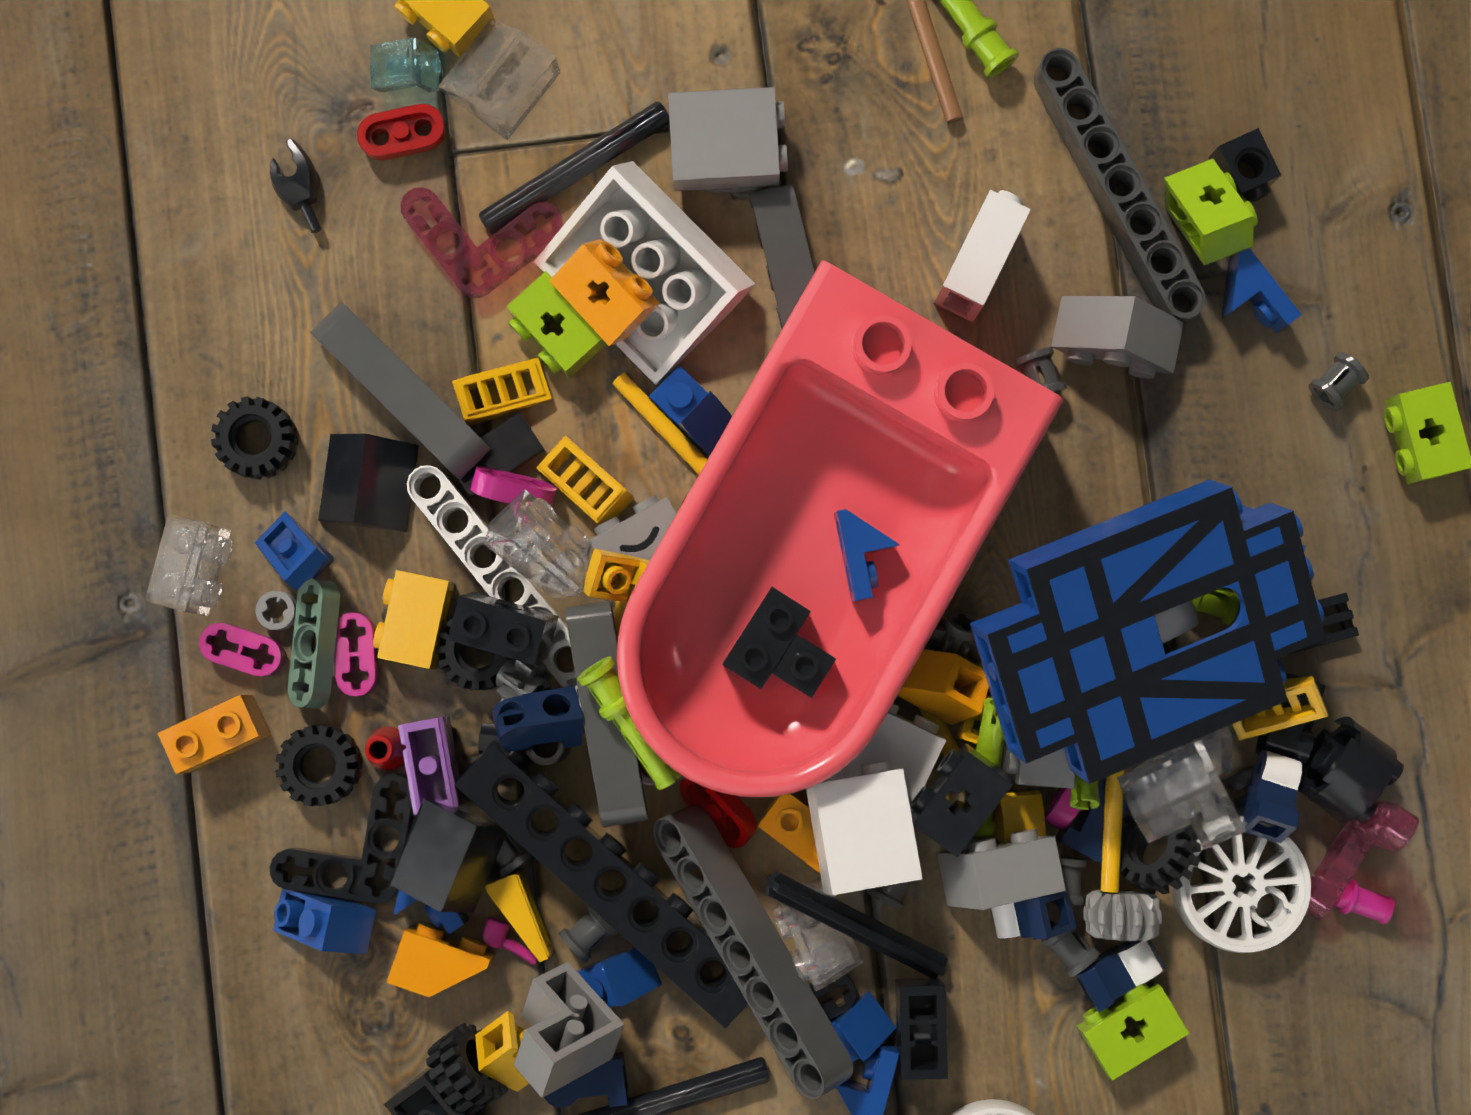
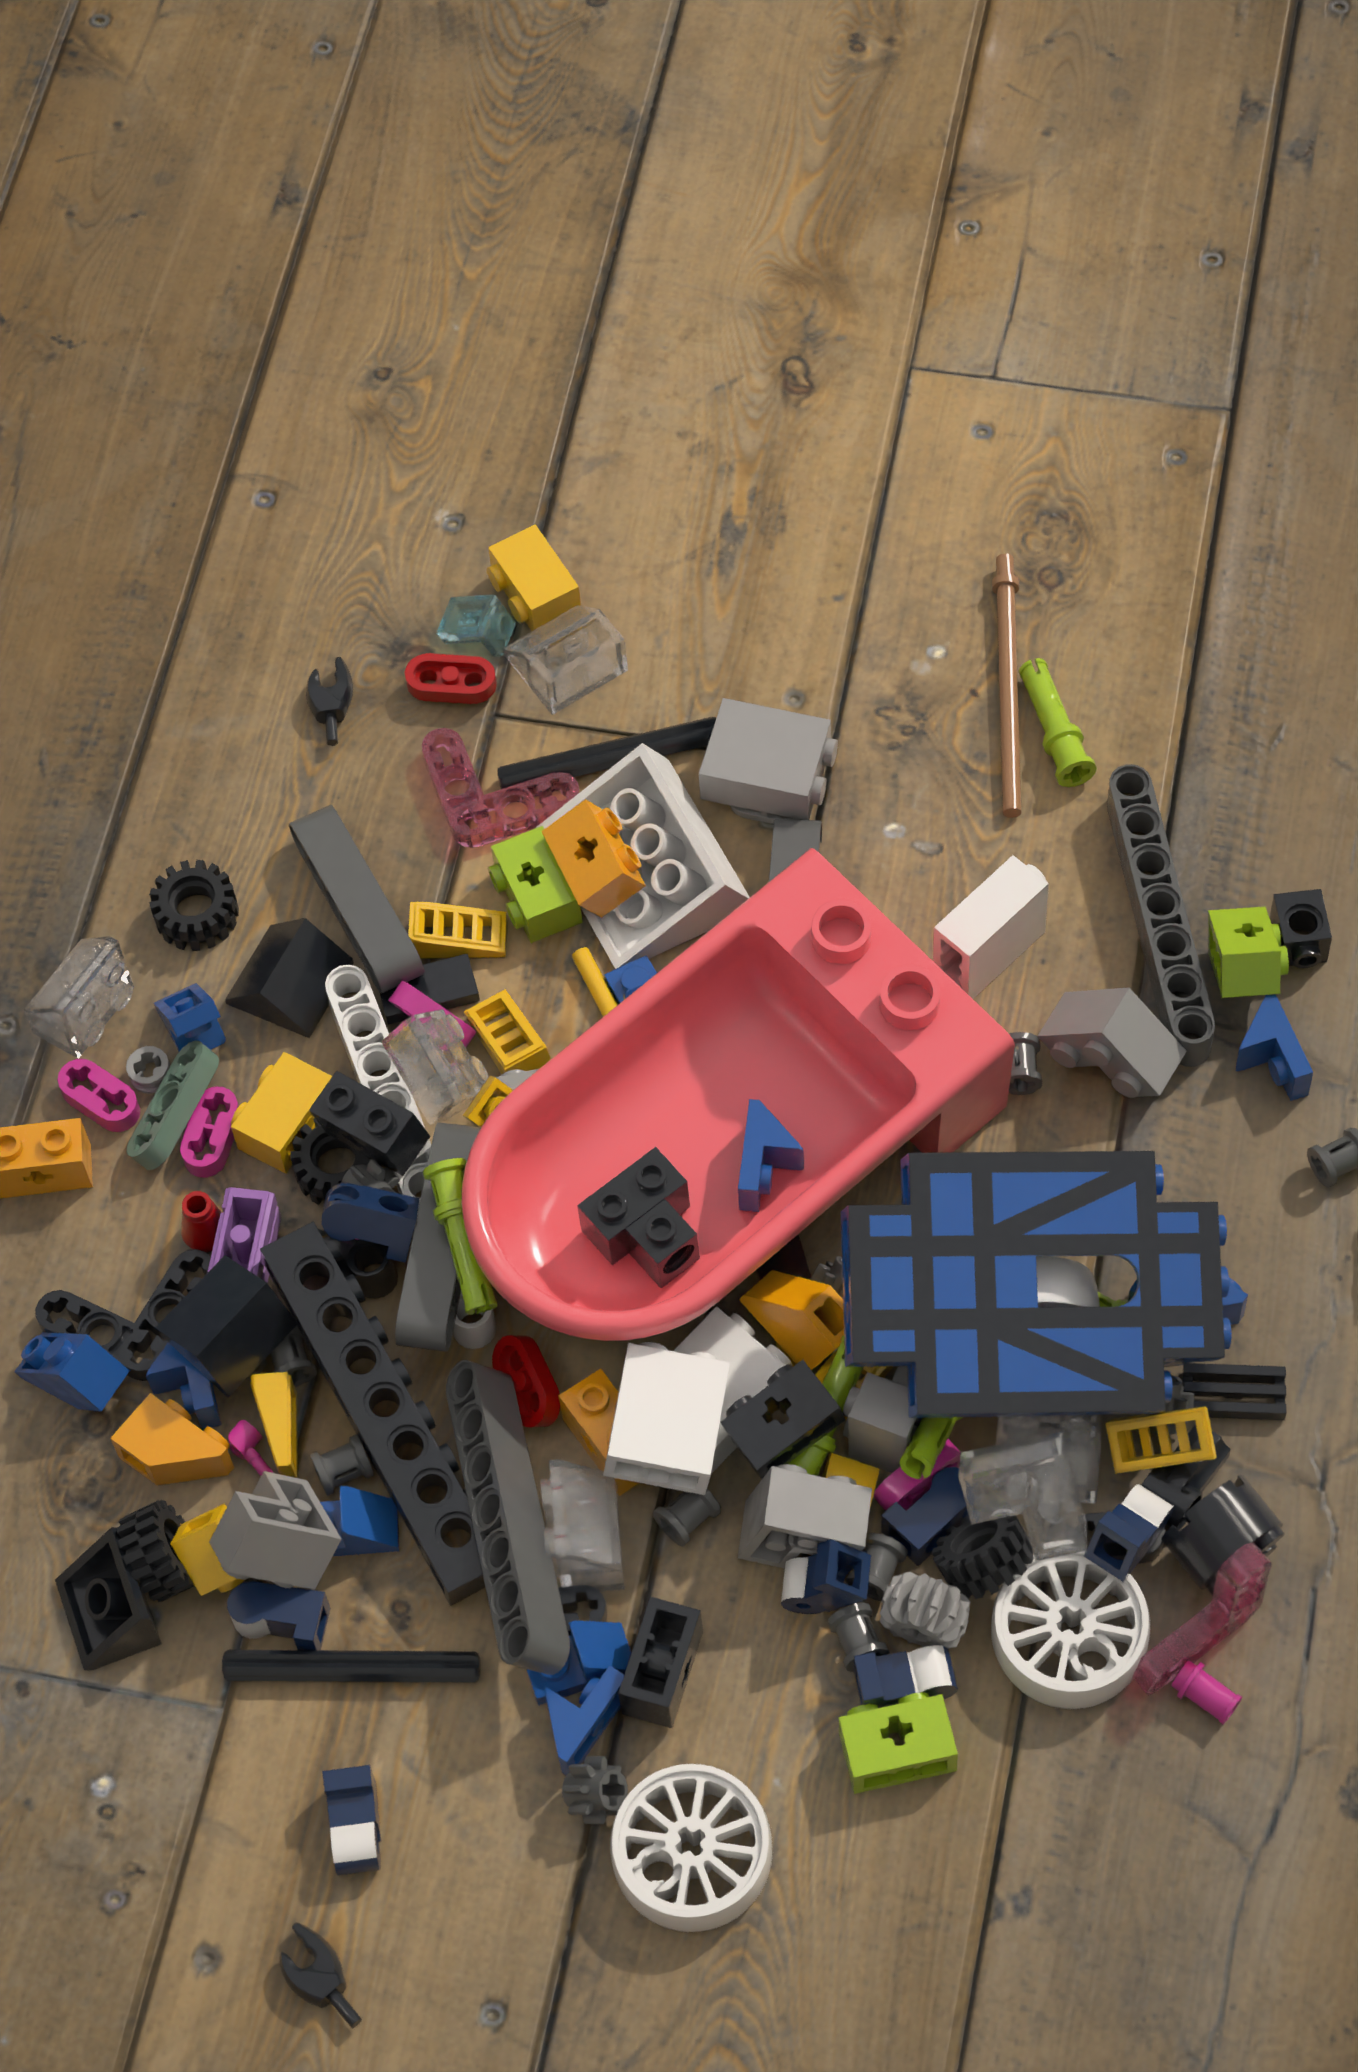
camera: 25 degrees right, 25 degrees down
(292, 758) = (122, 1198): black tyre -> none
(855, 924) = (625, 1518): black axle -> none
(1112, 834) = (941, 1512): yellow bar -> none

